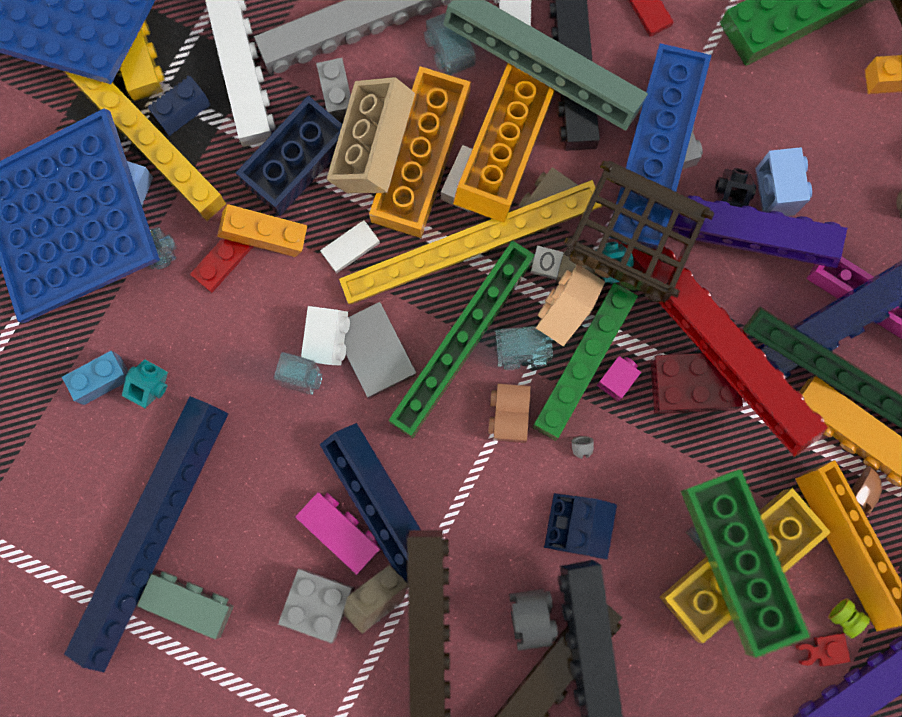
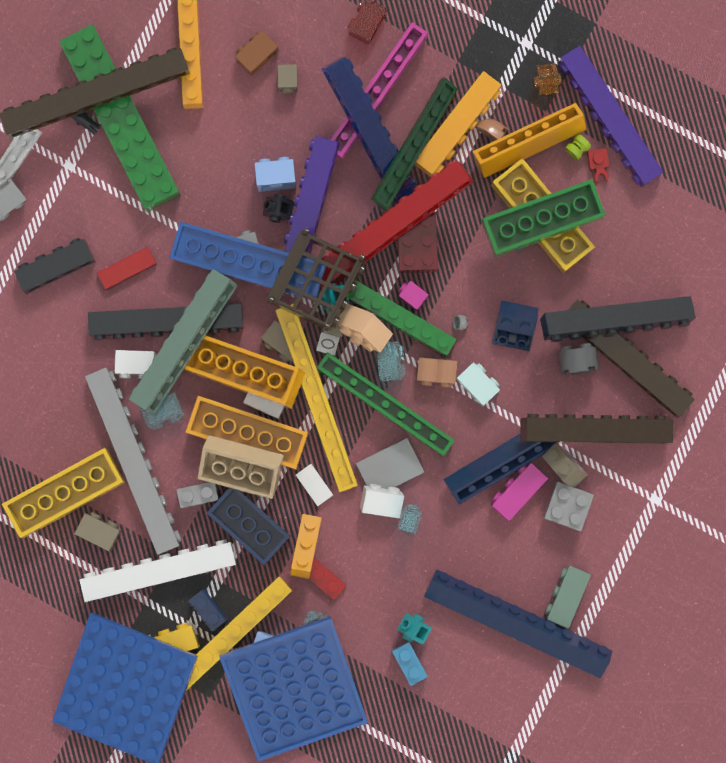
camera: 90 degrees left, 5 degrees up
(494, 472) = (478, 384): none -> light aqua brick

